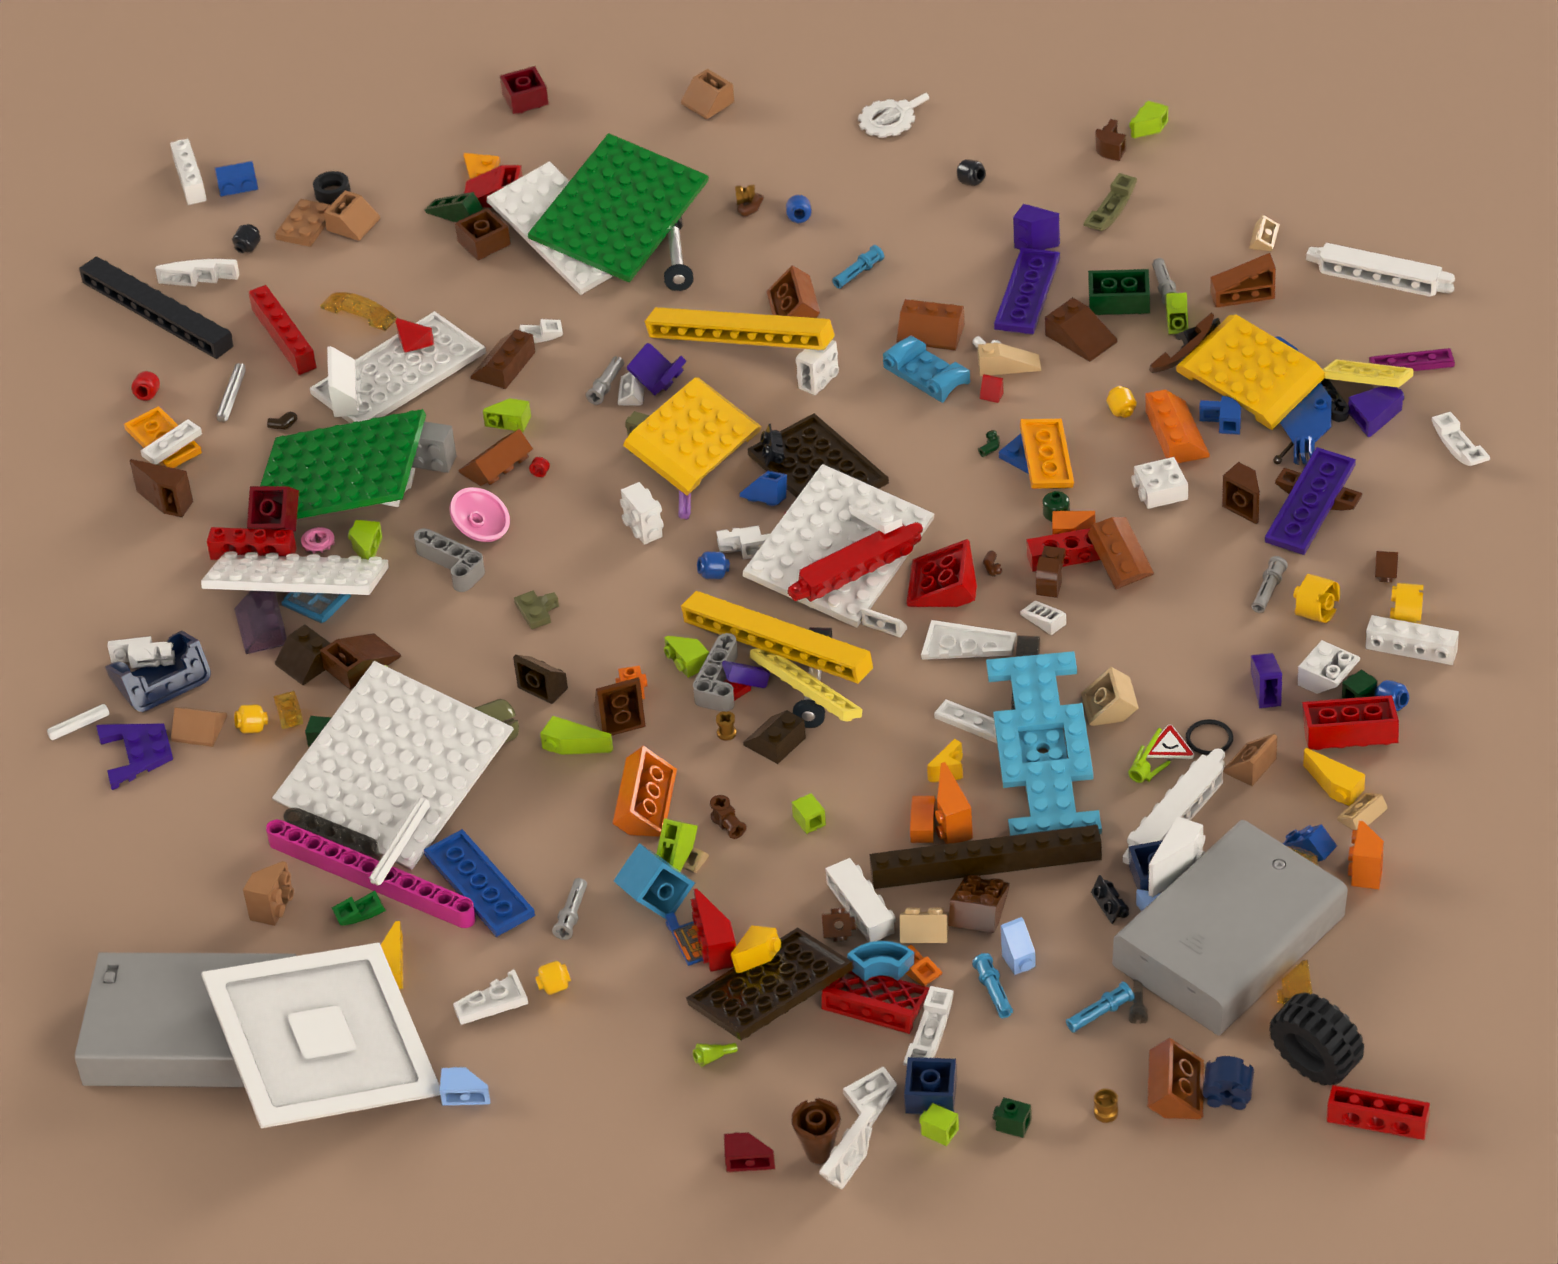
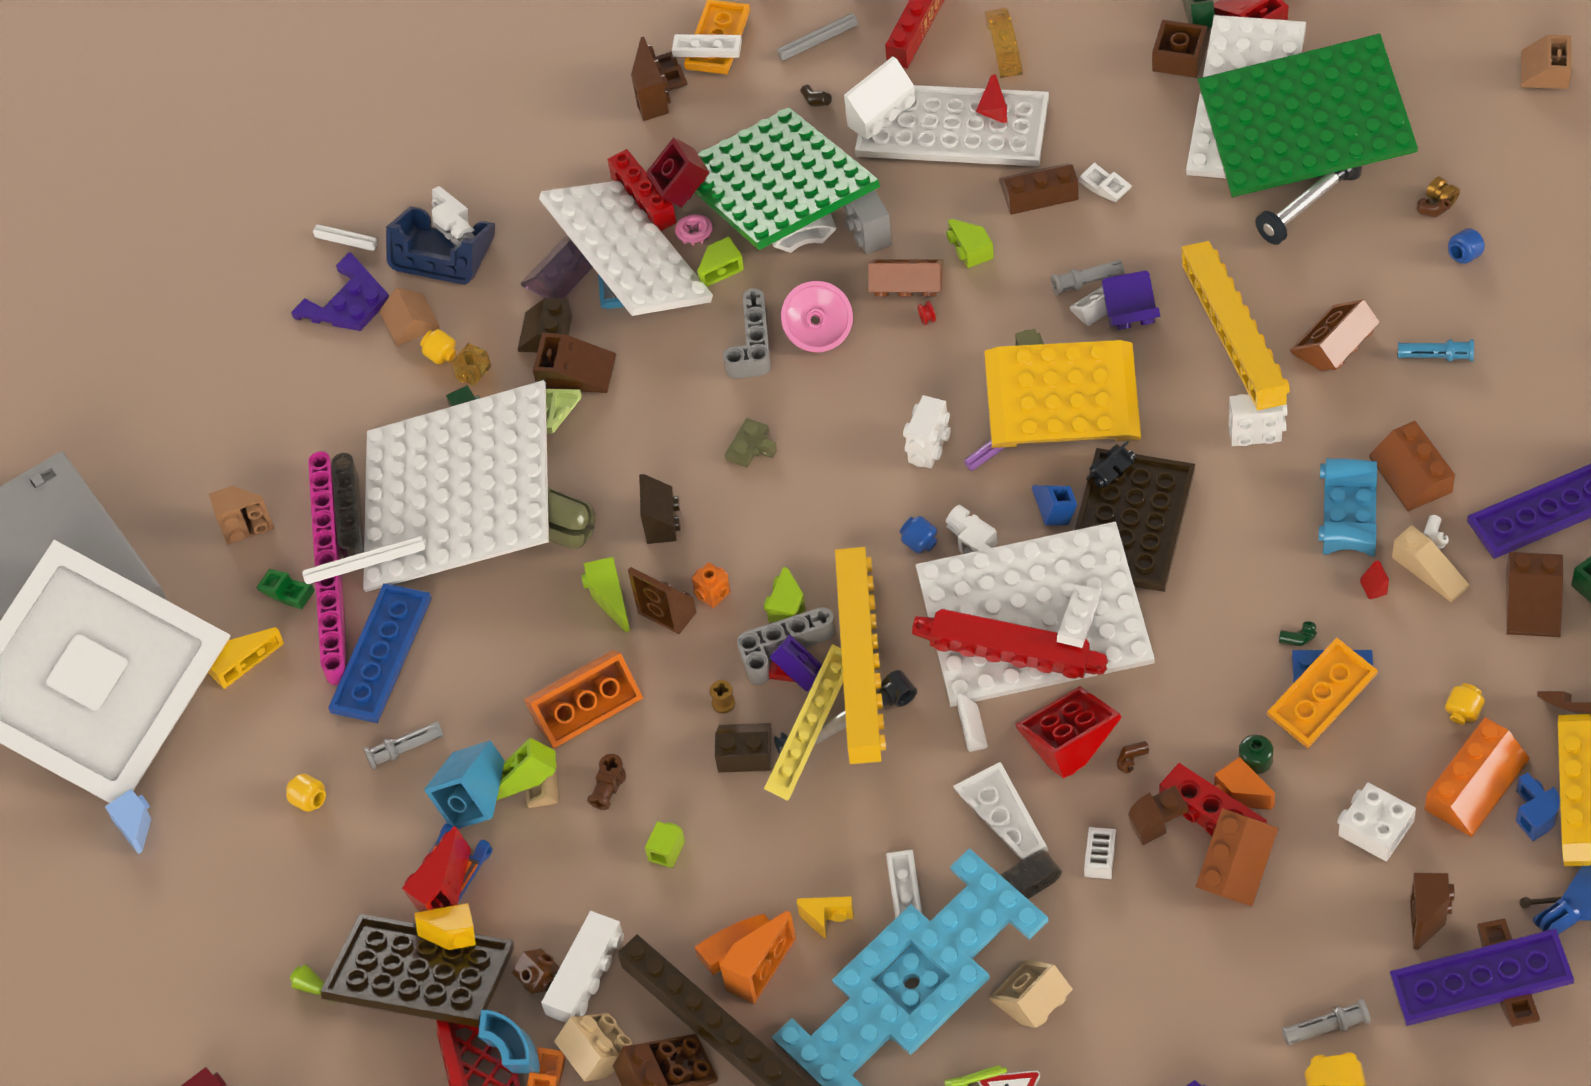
camera: 55 degrees right, 10 degrees up
(496, 999) = (251, 767): white wing -> none

